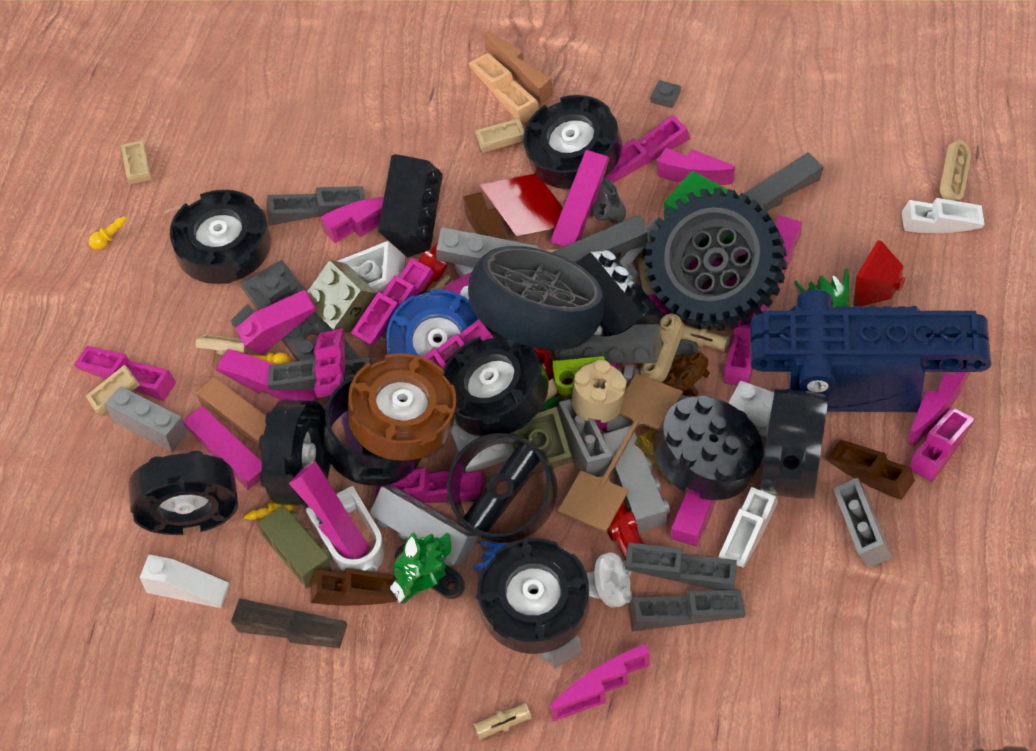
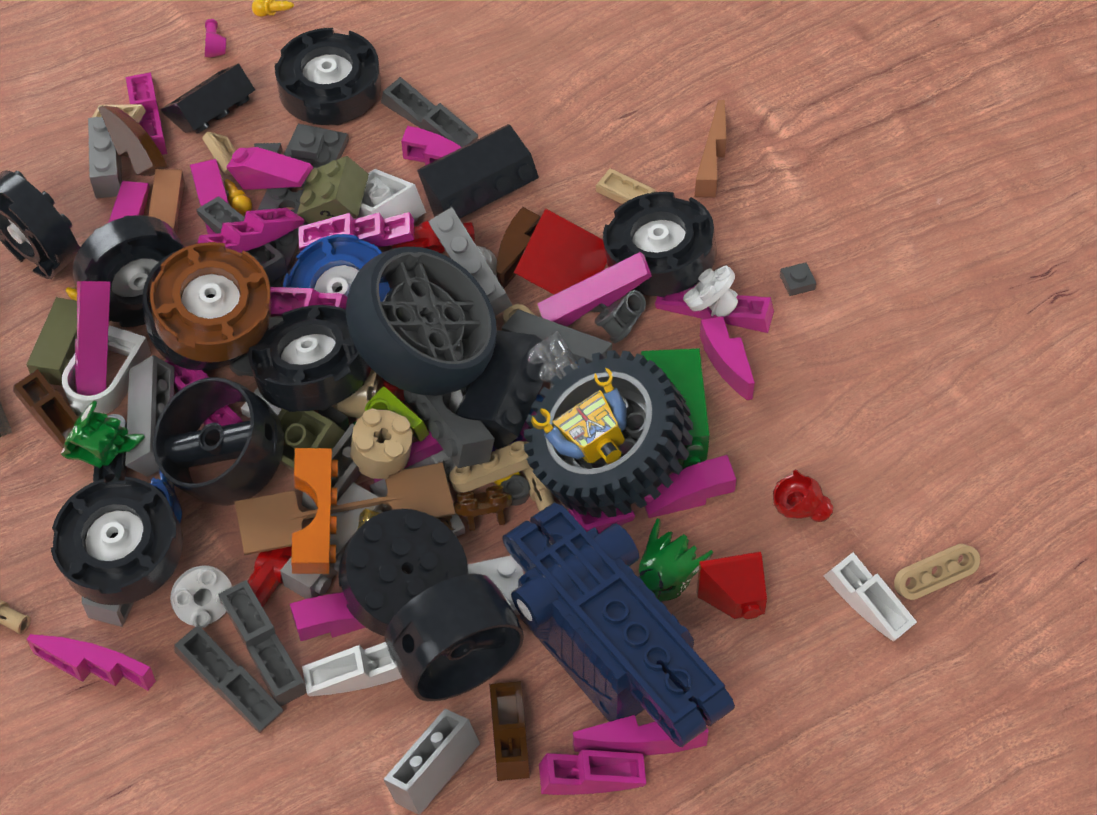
camera: 45 degrees right, 0 degrees up
(104, 290) = (214, 44): none -> dark pink bar
(157, 322) = (210, 99): none -> black slope
(158, 388) = (132, 141): none -> reddish brown slope
(506, 90) = (684, 156): light nougat slope -> none
(592, 445) = (312, 544): none -> orange arch
(628, 256) = (554, 355): none -> clear plate
(643, 137) = (713, 292): none -> white plate
(709, 260) = (591, 427): none -> torso
(788, 180) = (758, 434): dark grey slope -> none
(839, 196) = (801, 498): none -> red piece

